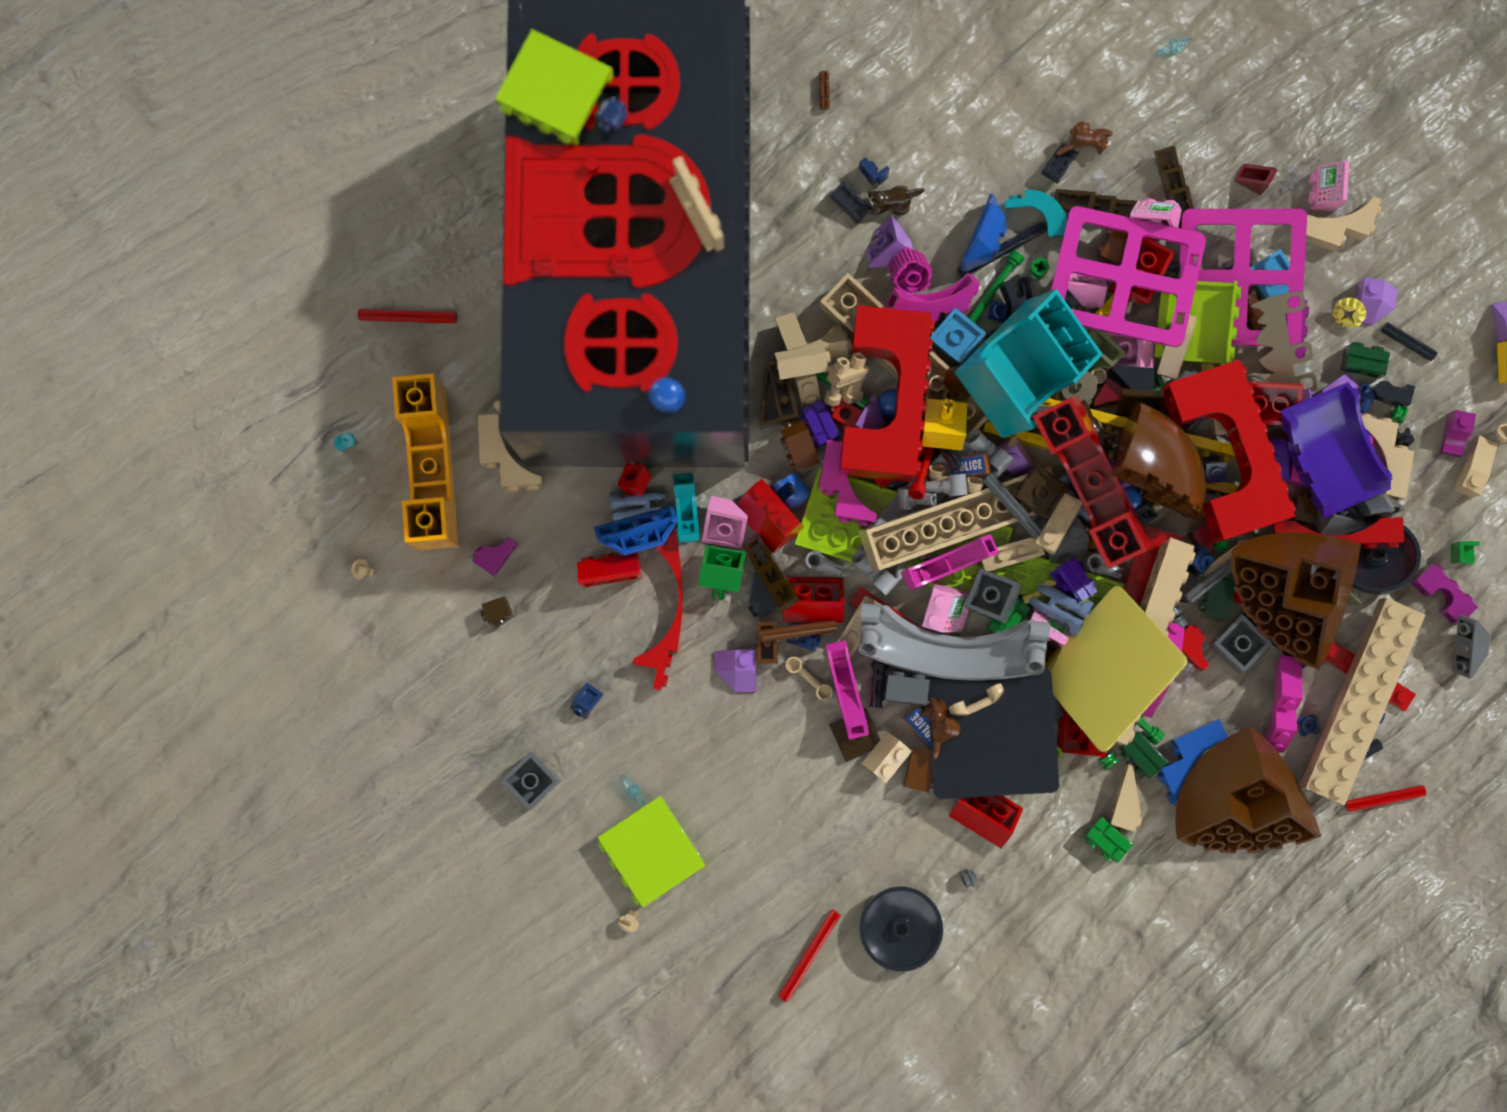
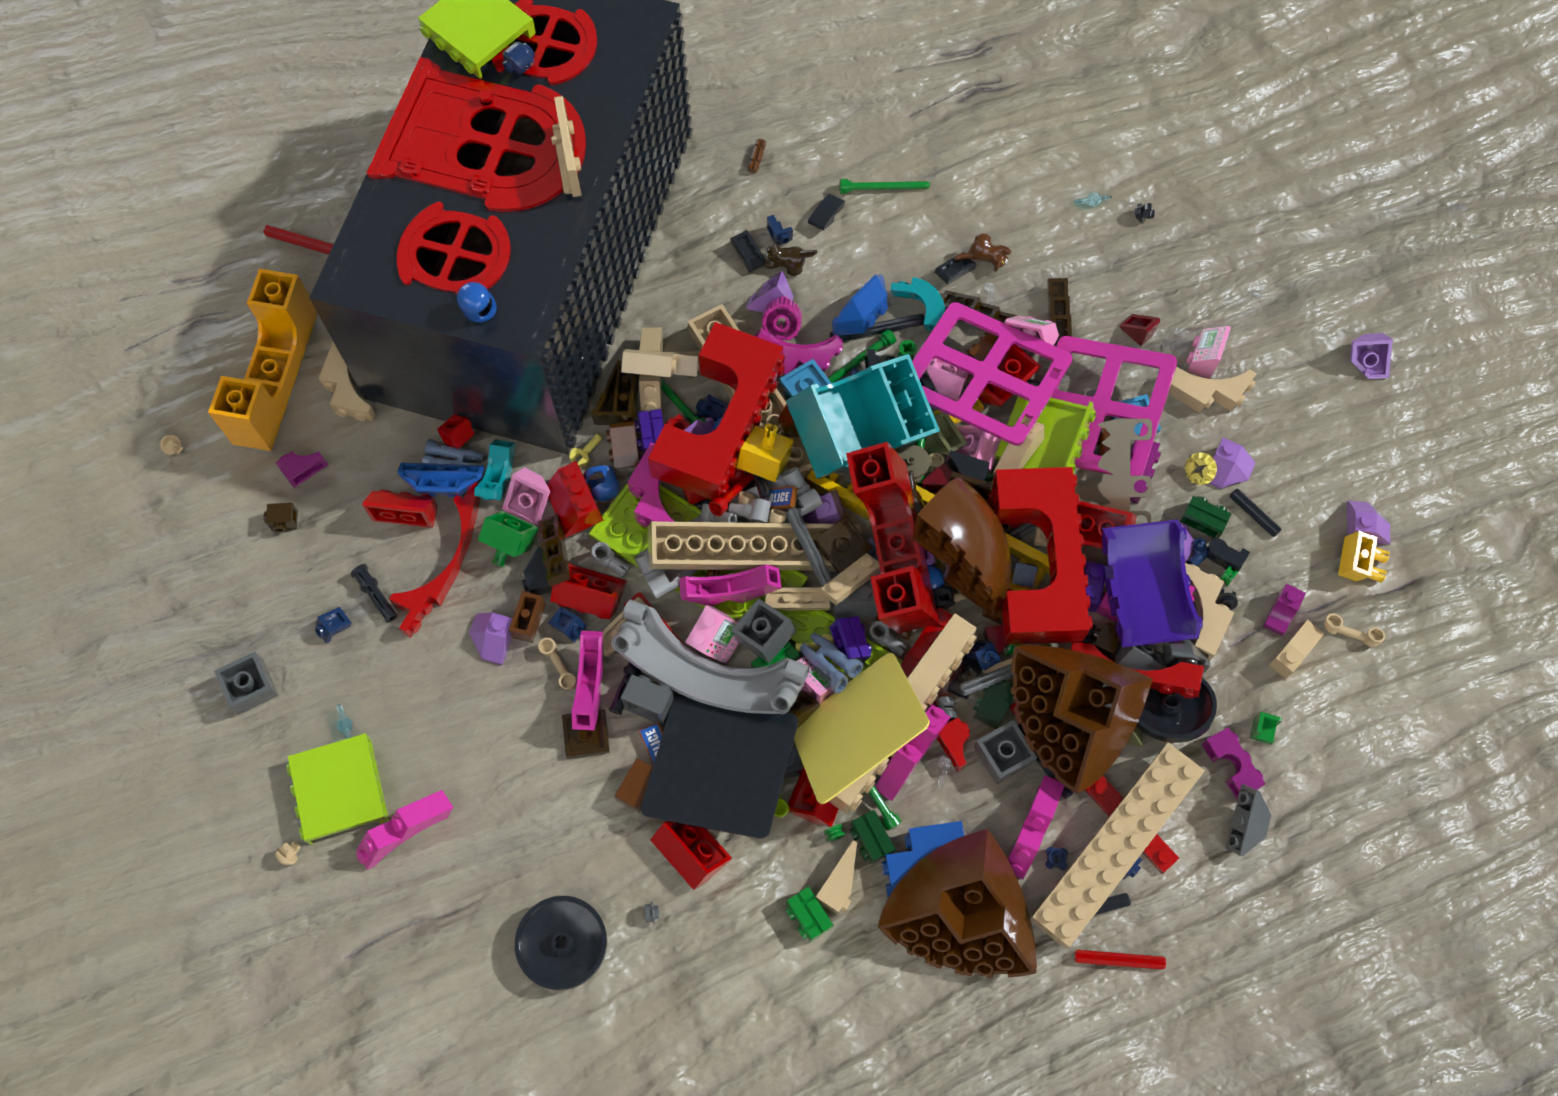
camera: 15 degrees right, 15 degrees down
(344, 441) = (205, 330): teal piece -> none
(606, 654) = (369, 585): none -> black pin
(726, 870) = (403, 825): none -> dark pink arch
(760, 461) = (585, 451): none -> light yellow bar
(797, 631) = (559, 610): reddish brown axle -> none
(809, 955) = (457, 946): red axle -> none
(846, 380) = (690, 389): tan hips -> none
(873, 383) = (711, 407): none -> dark blue bracket
(886, 757) = (607, 762): tan brick -> none
(914, 136) = (824, 213): none -> black slope
(925, 100) = (847, 185): none -> green piece
(941, 726) = (670, 742): reddish brown animal -> none
(994, 694) = (734, 724): tan bar -> none
(1229, 47) = (1144, 212): none -> black plate
(1486, 144) = (1372, 355): none -> medium lavender slope

